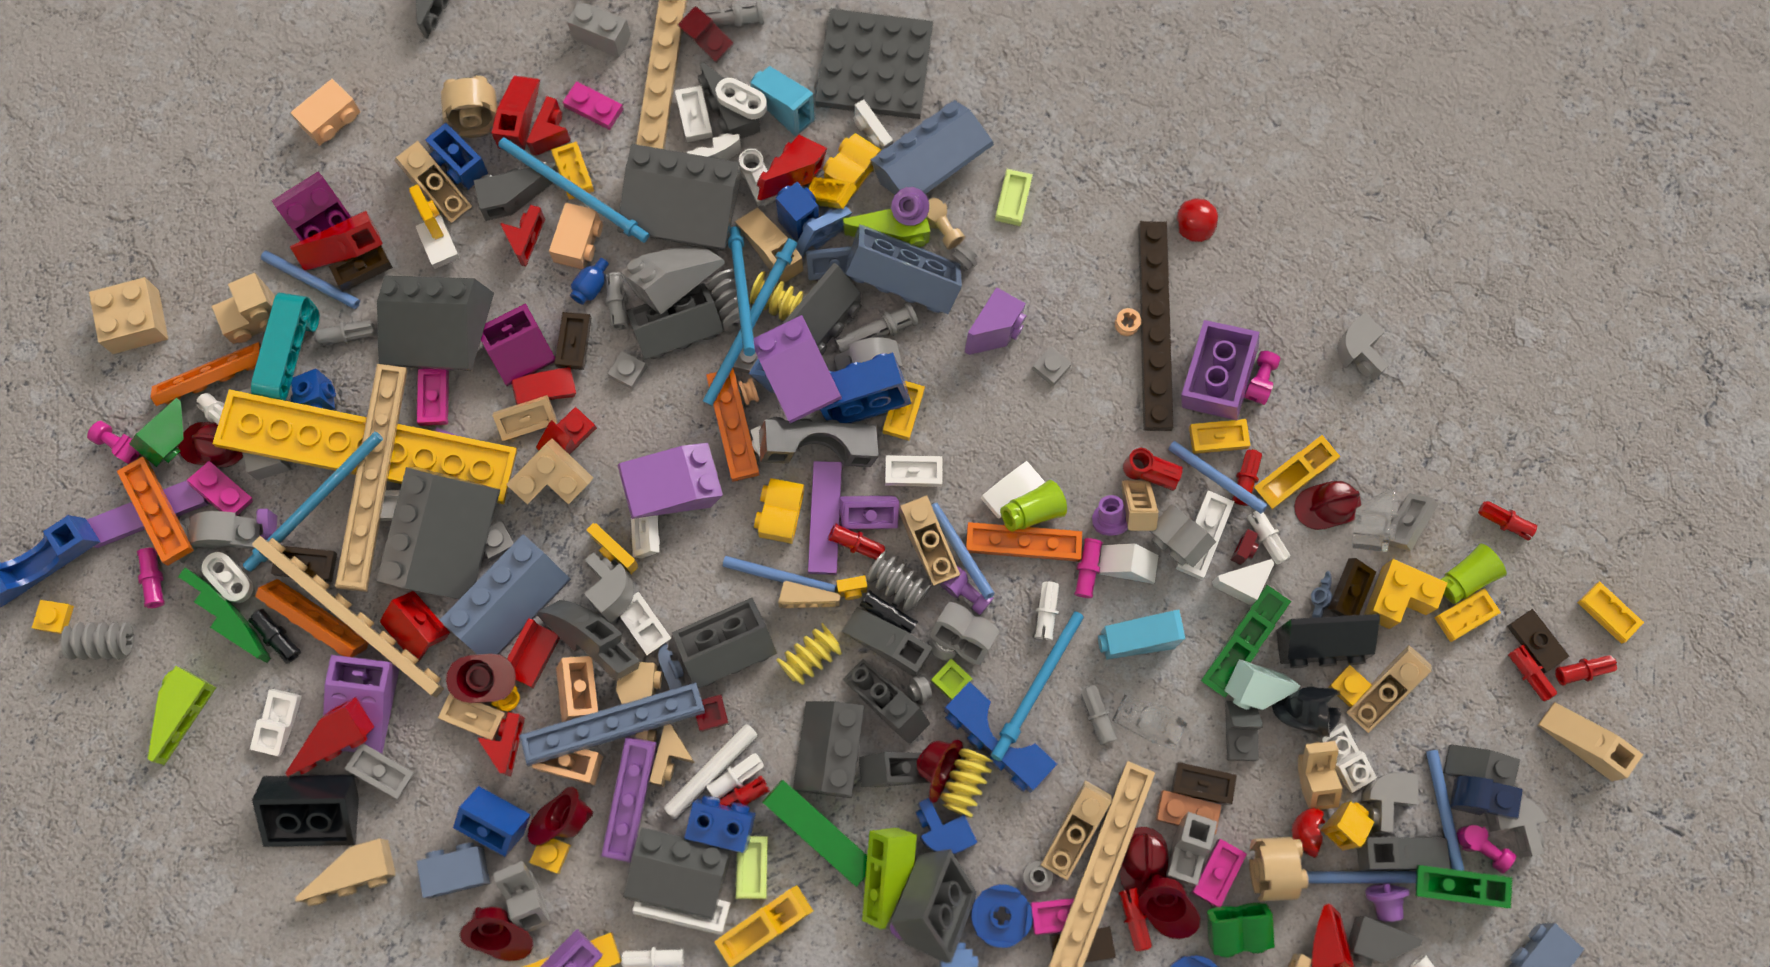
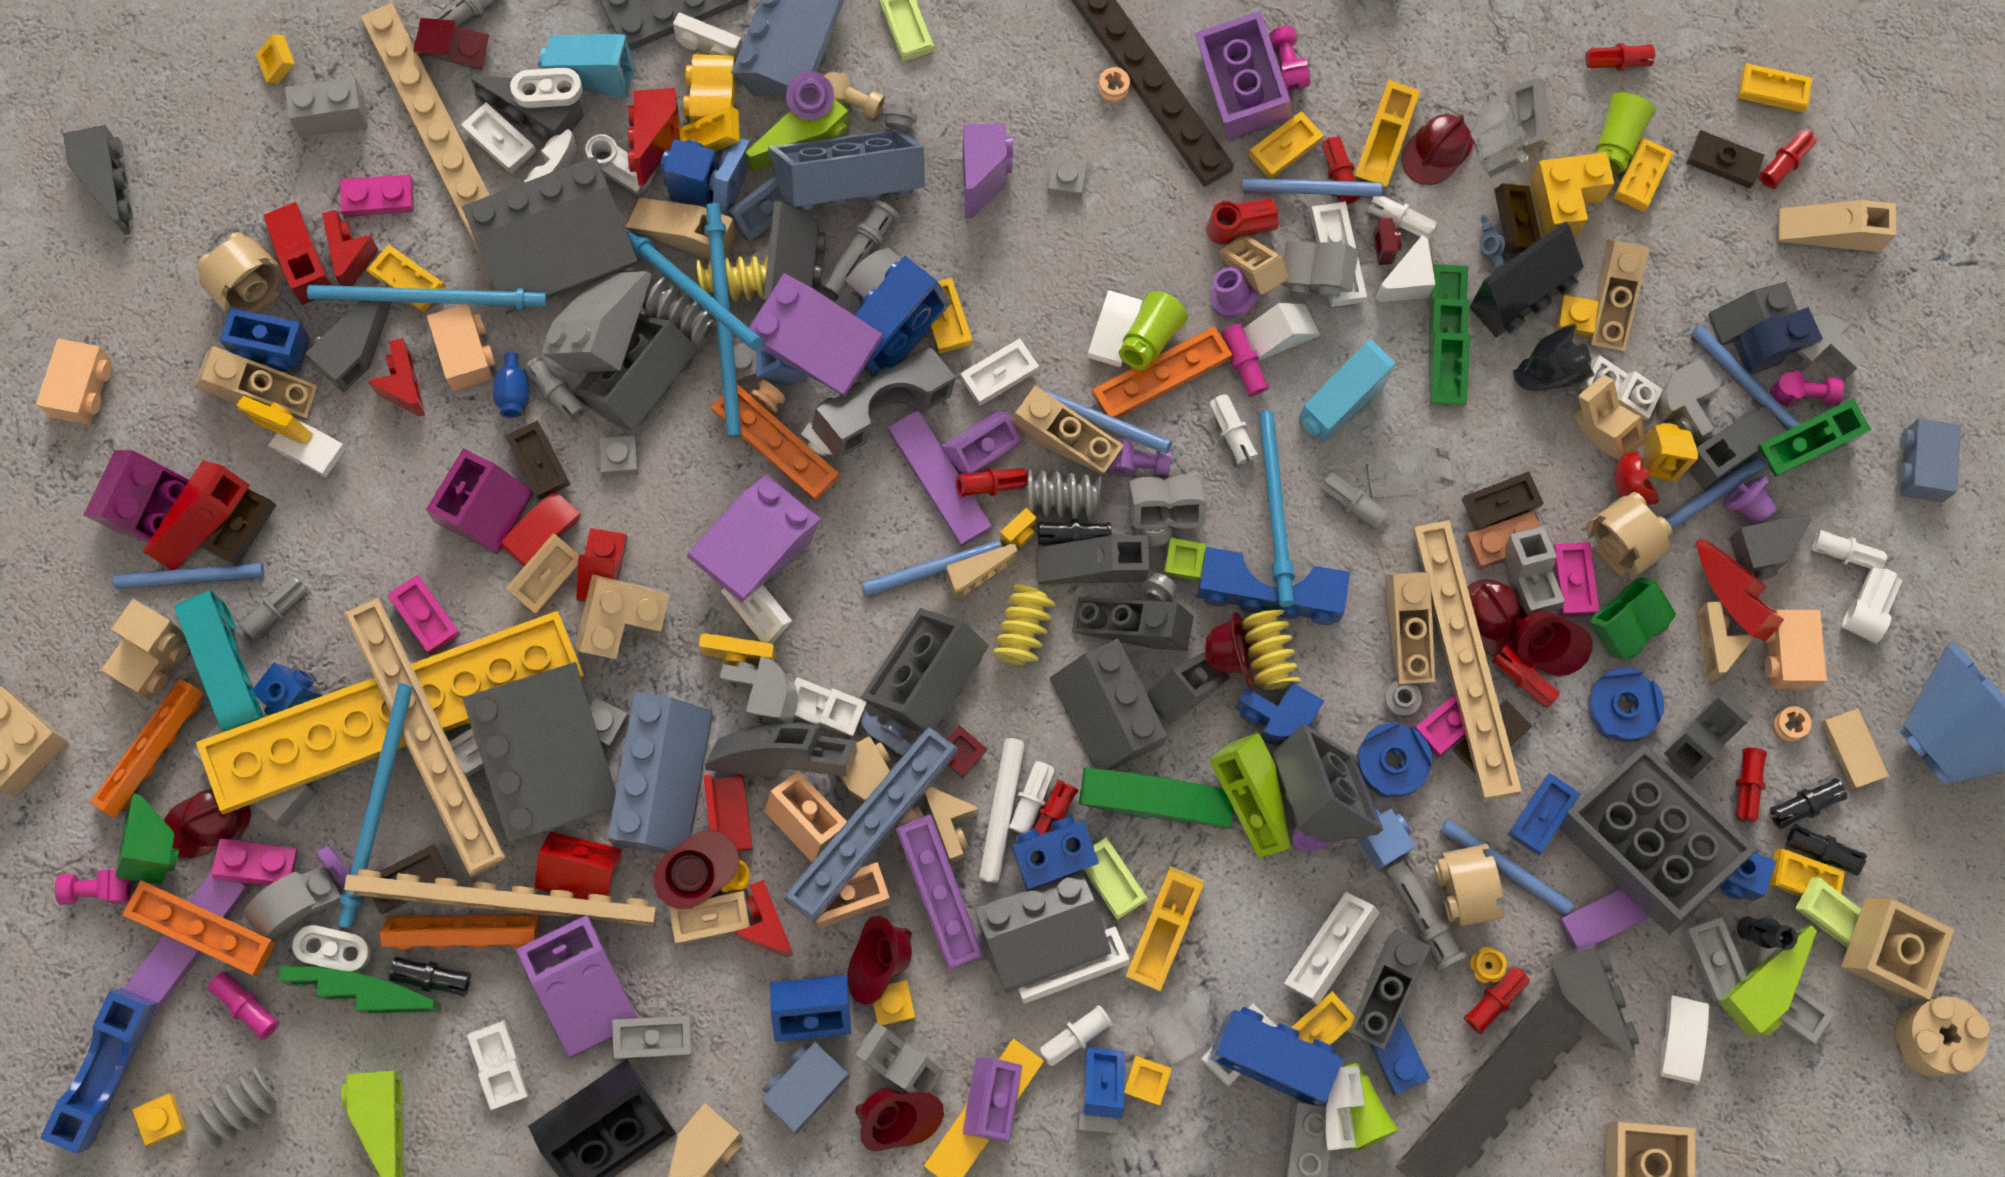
camera: 35 degrees left, 0 degrees up
(211, 407) = (185, 781): white axle -> none
(337, 729) = (577, 1025): red slope -> none
(431, 321) = (369, 532): dark grey slope -> none
(780, 510) = (889, 499): yellow brick -> none
(1242, 732) = (1503, 426): dark grey slope -> none
(1258, 686) = (1492, 370): light aqua slope -> none
(1532, 673) = (1741, 193): red axle -> none

